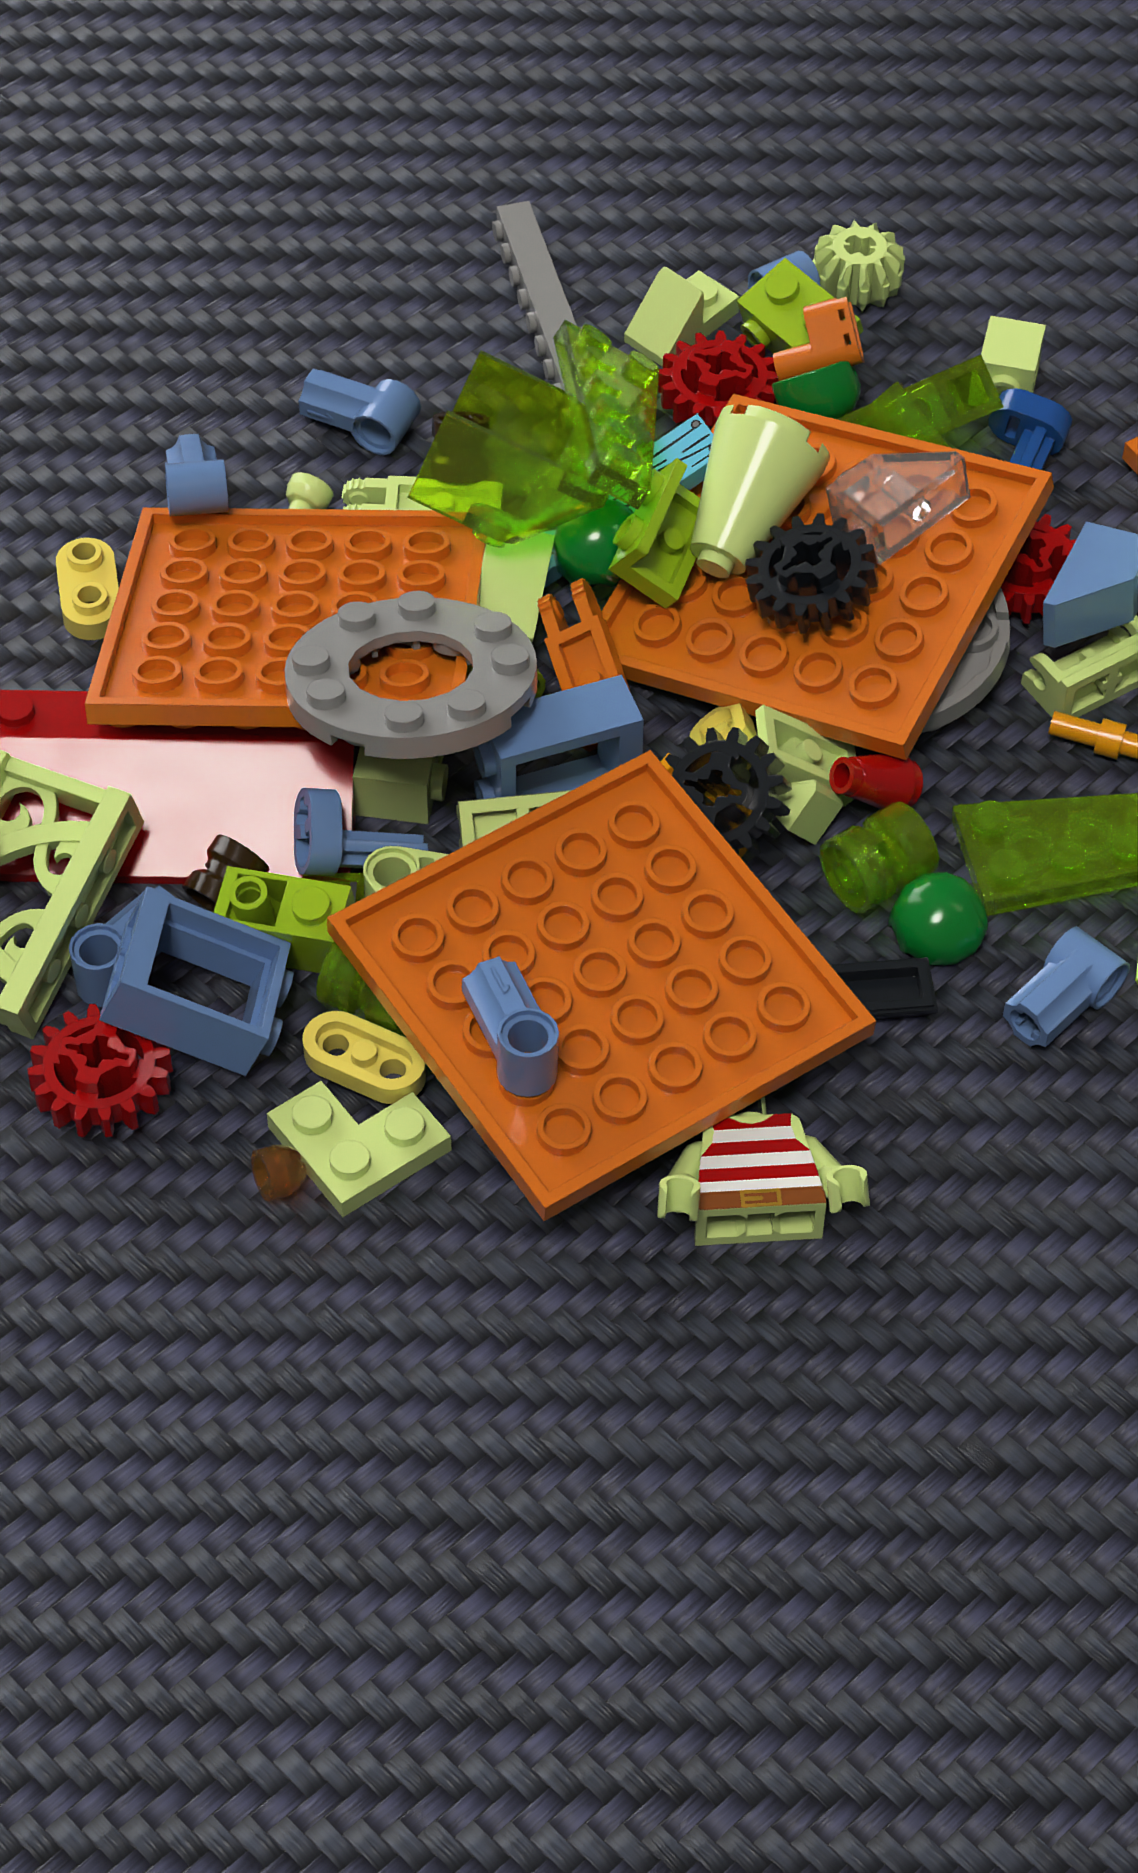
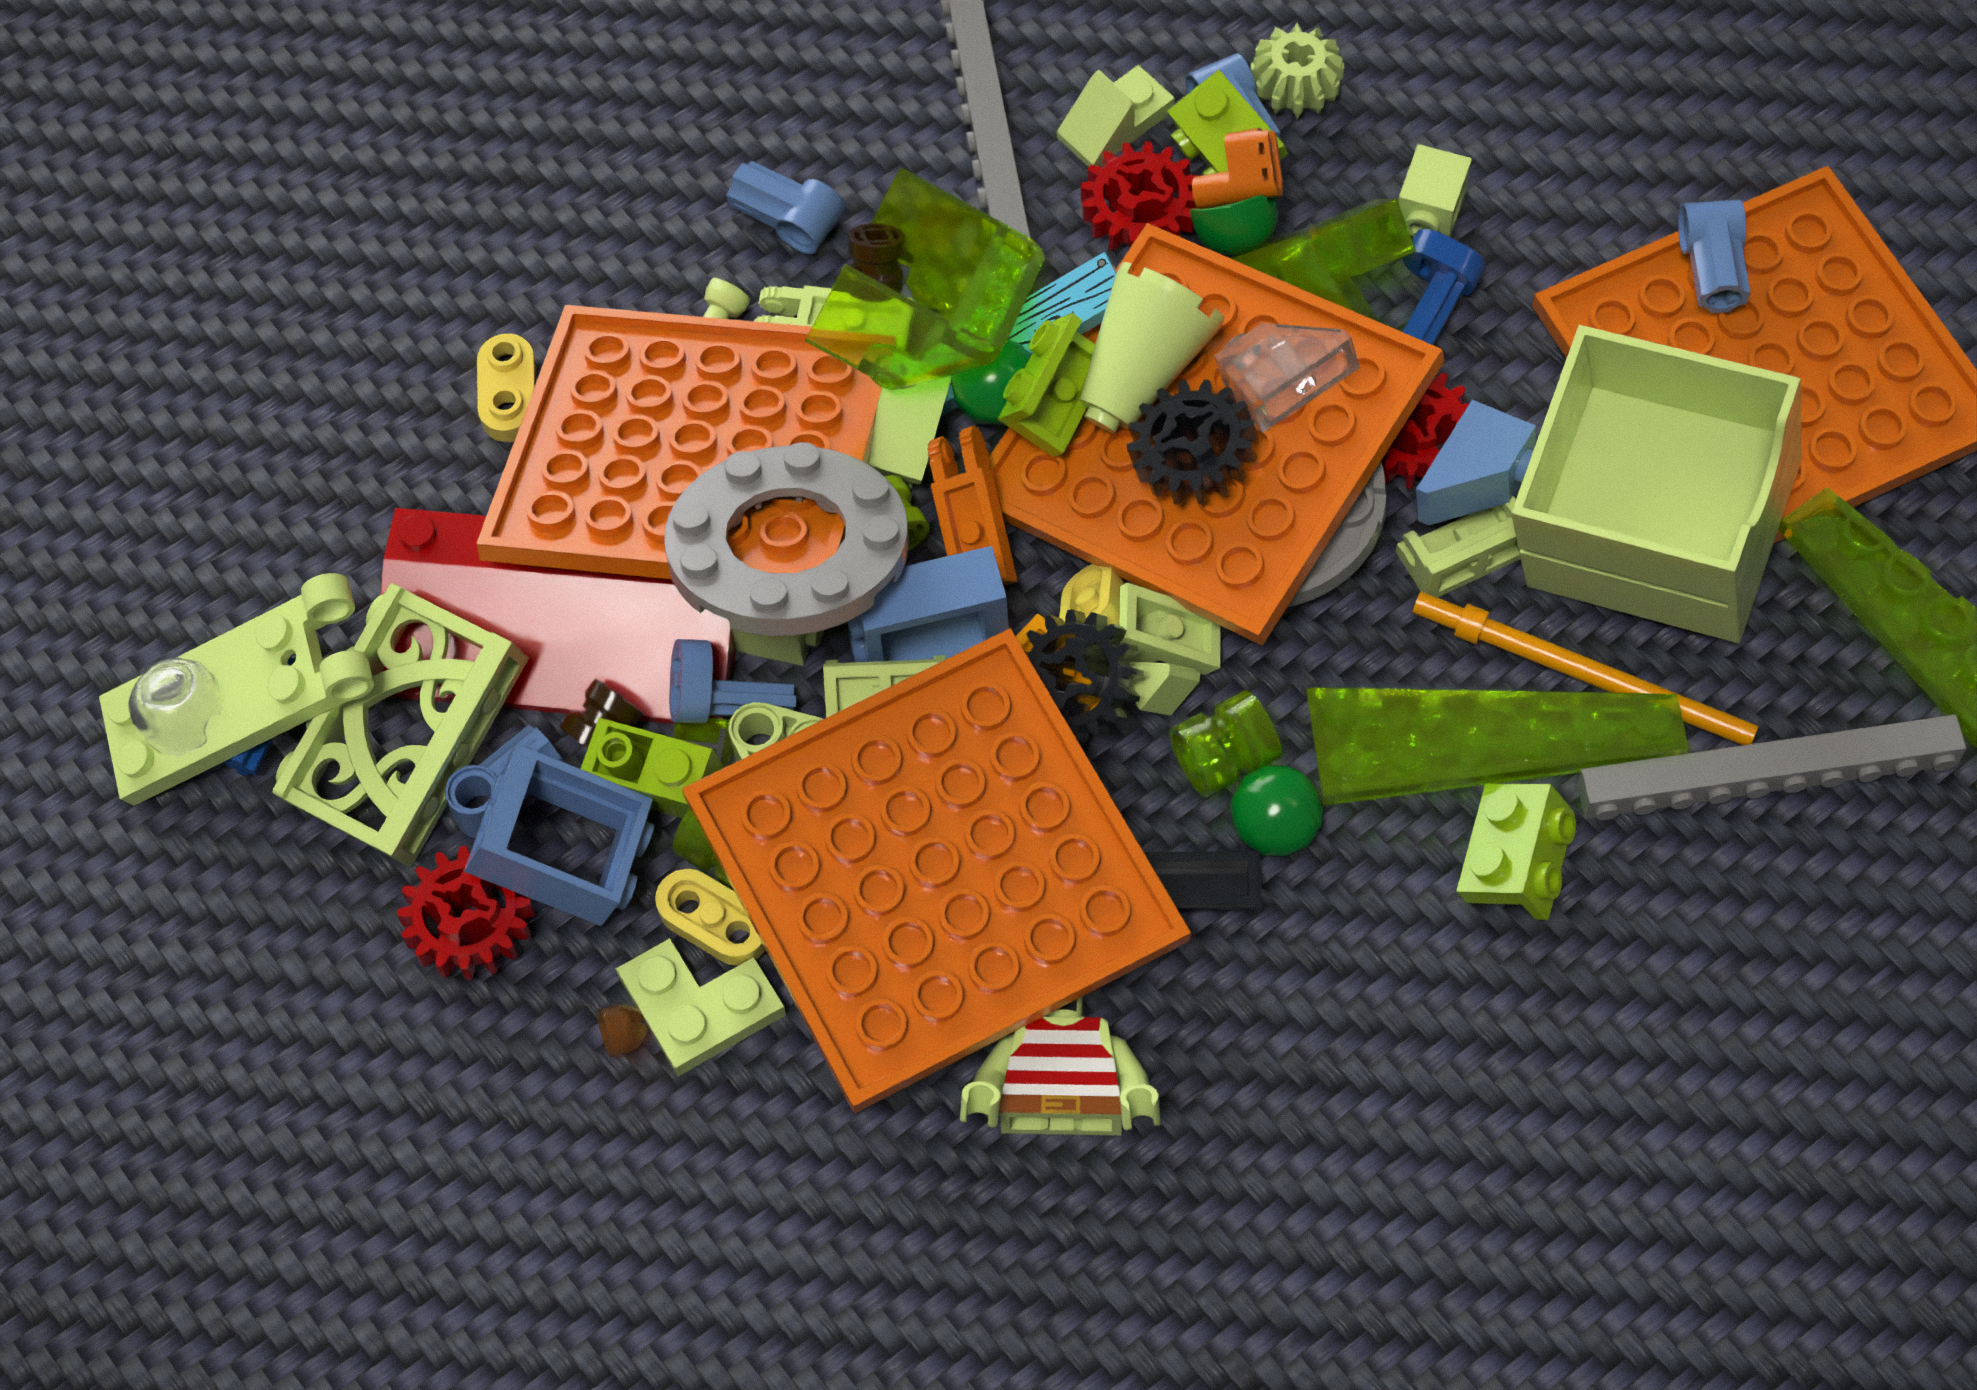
camera: 10 degrees right, 10 degrees up
(195, 478) = (616, 278): medium blue piece -> none
(513, 1026) = (840, 921): medium blue piece -> none
(611, 410) = (1021, 245): clear neon green wing -> none
(877, 779) = (1234, 660): red cone -> none
(1074, 976) = (1398, 884): medium blue piece -> none

